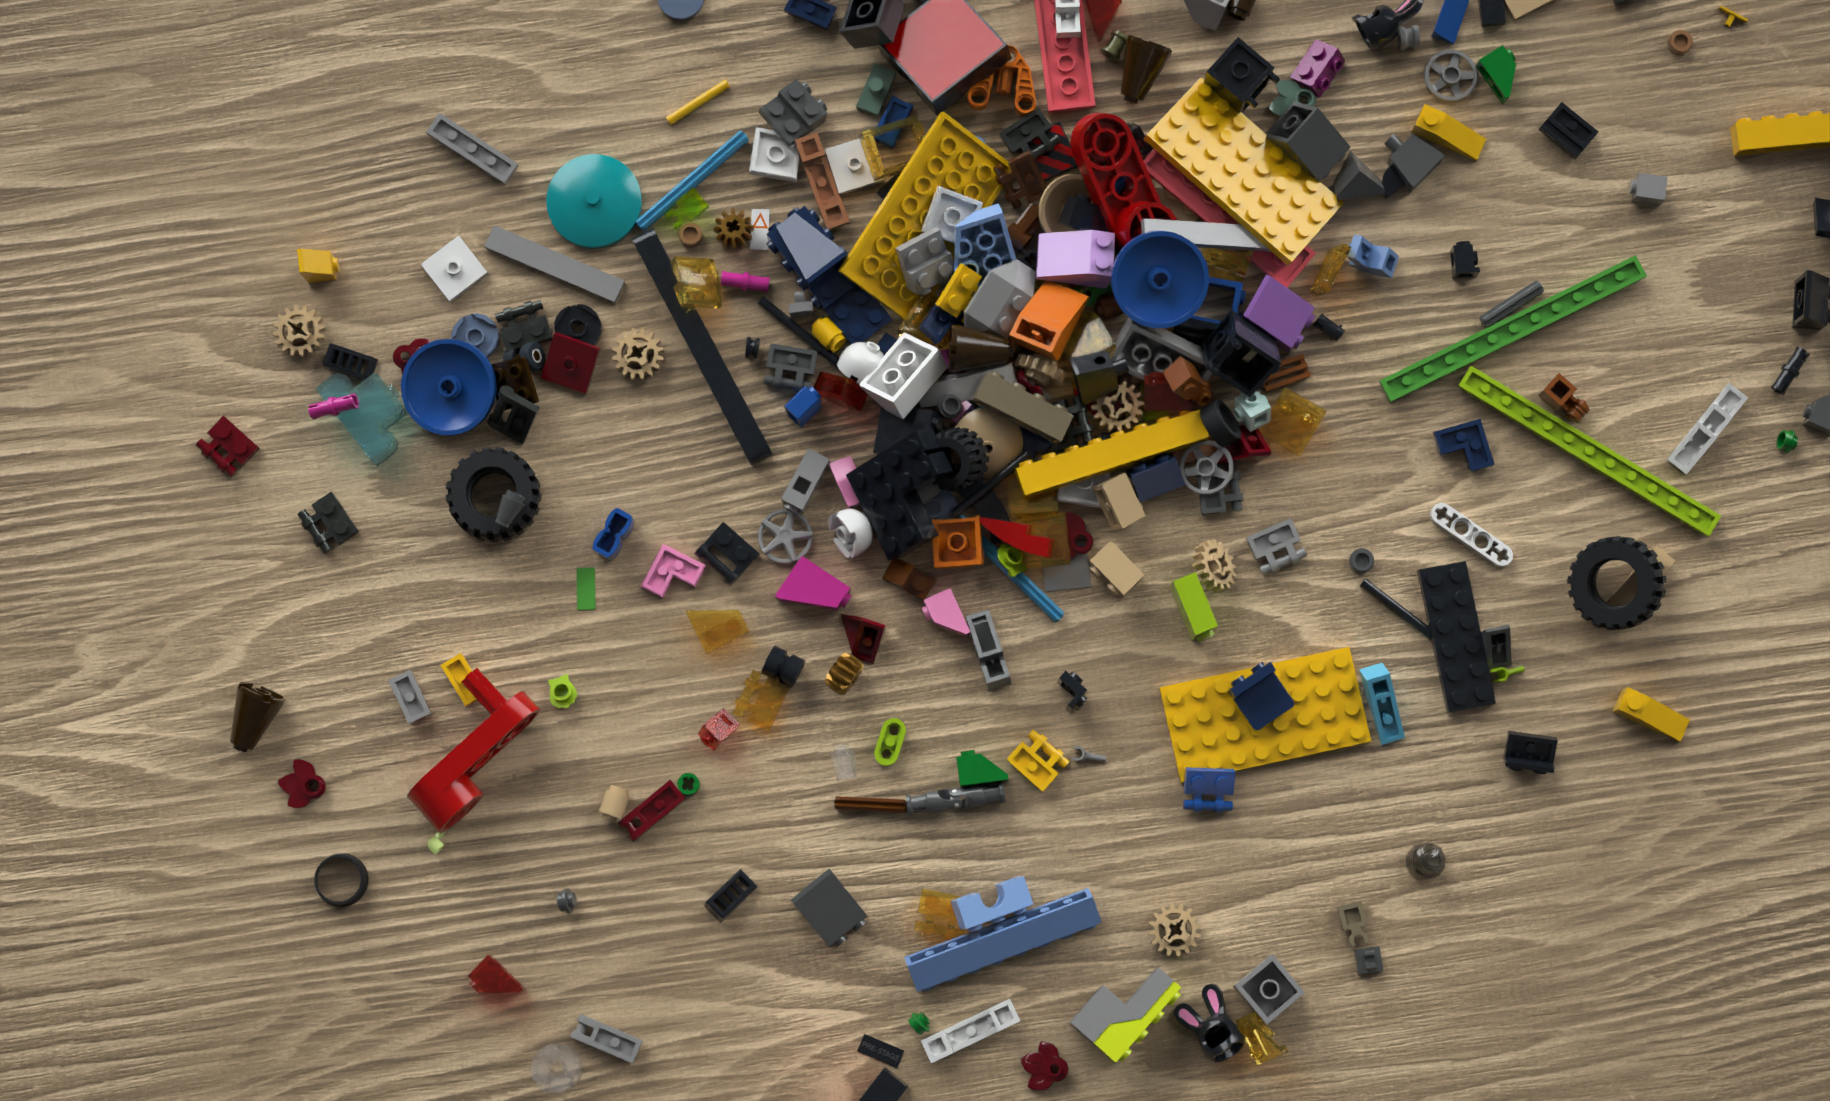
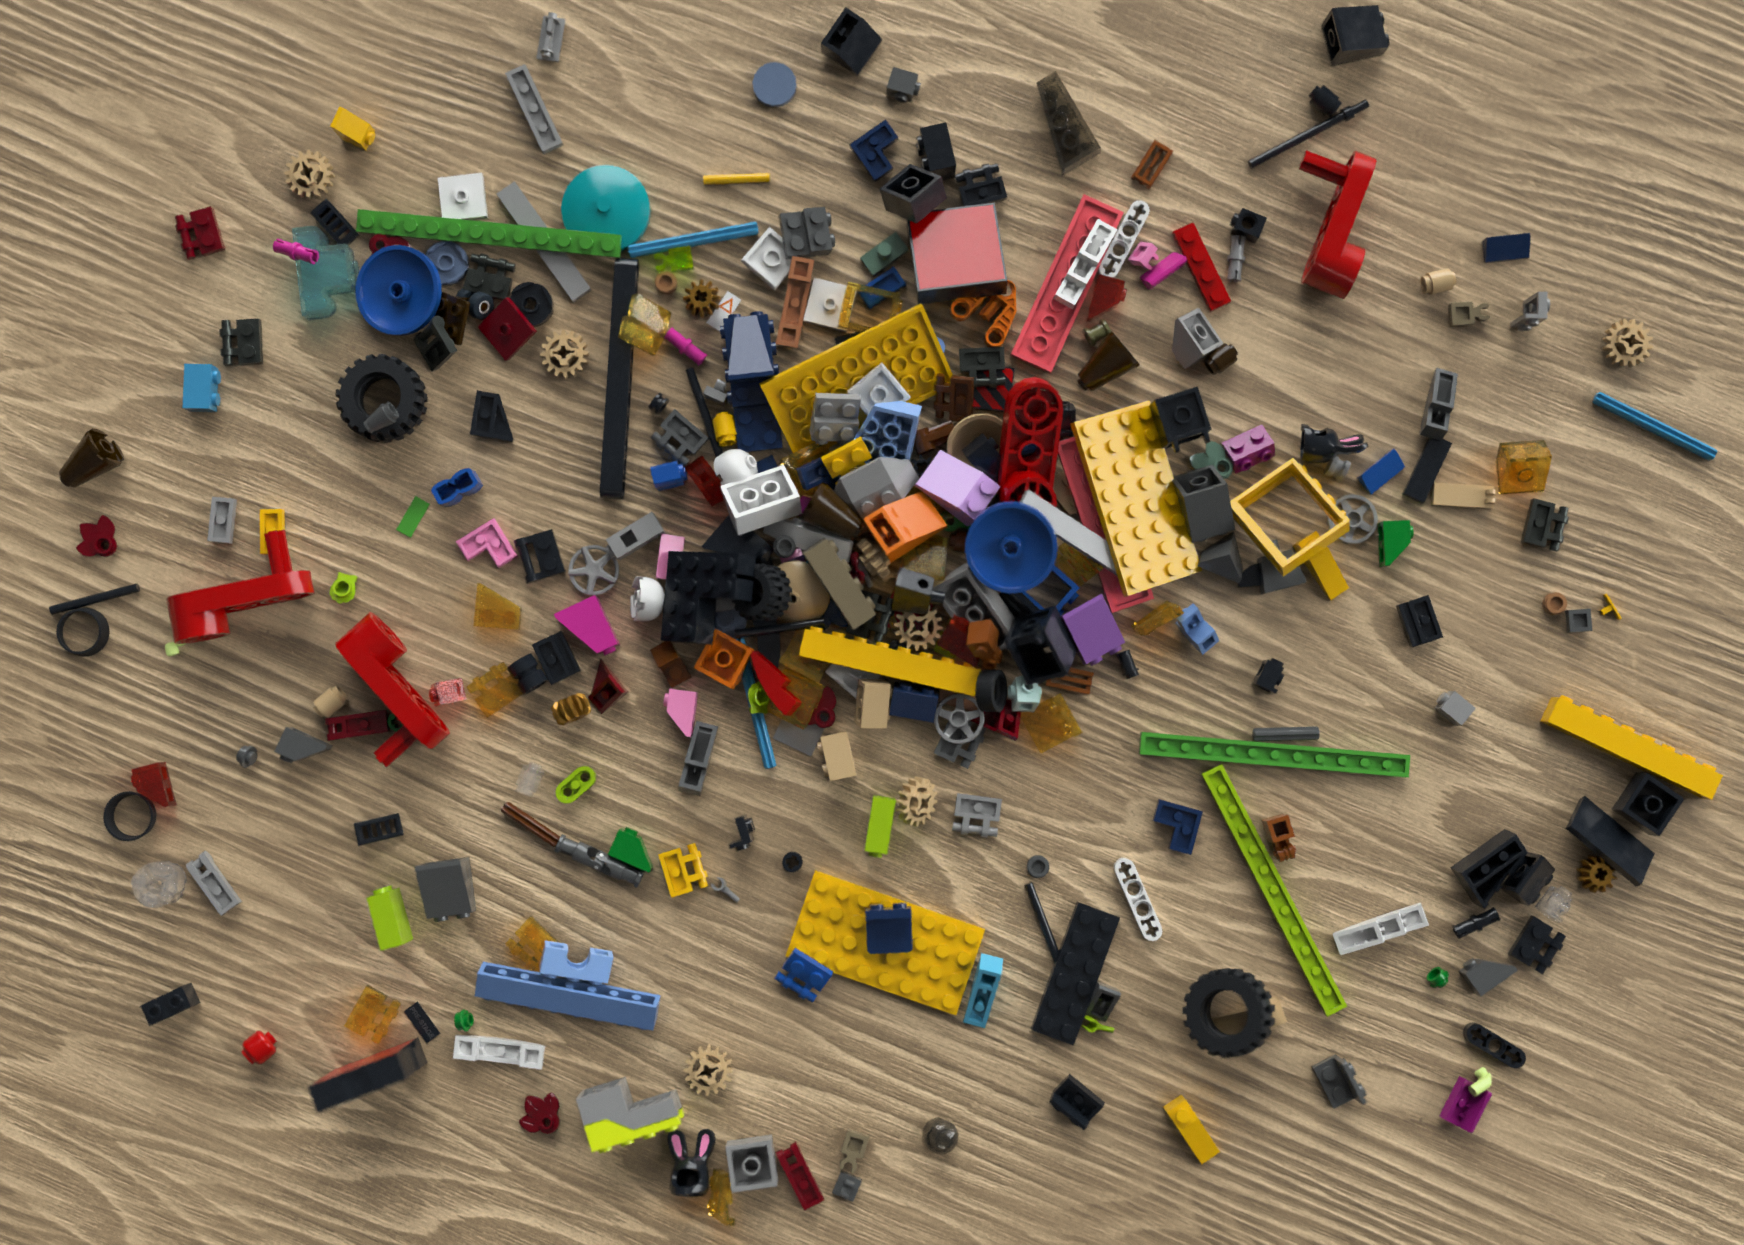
camera: 25 degrees right, 5 degrees up
(316, 586) = (201, 387): none -> dark azure brick
(333, 842) = (96, 598): none -> black bar
(447, 75) = (551, 38): none -> light grey hinge
(466, 1022) = (108, 816): none -> black tyre
(500, 286) = (489, 233): none -> bright green plate
(603, 454) = (490, 418): none -> black wing
(611, 861) = (298, 745): none -> dark grey slope
(630, 729) = (371, 652): none -> red beam
(793, 966) = (389, 917): none -> lime brick
(800, 636) = (556, 657): none -> black plate
(822, 1069) = (366, 1010): none -> clear yellow plate
(1140, 696) = (796, 867): none -> black bush
(1320, 977) = (800, 1177): none -> dark red plate
(1400, 69) = (1313, 488): none -> yellow window
(1711, 44) = (1578, 620): none -> dark grey plate
(1757, 588) = (1338, 1081): none -> dark grey bracket
(1768, 312) = (1489, 865): none -> black wedge

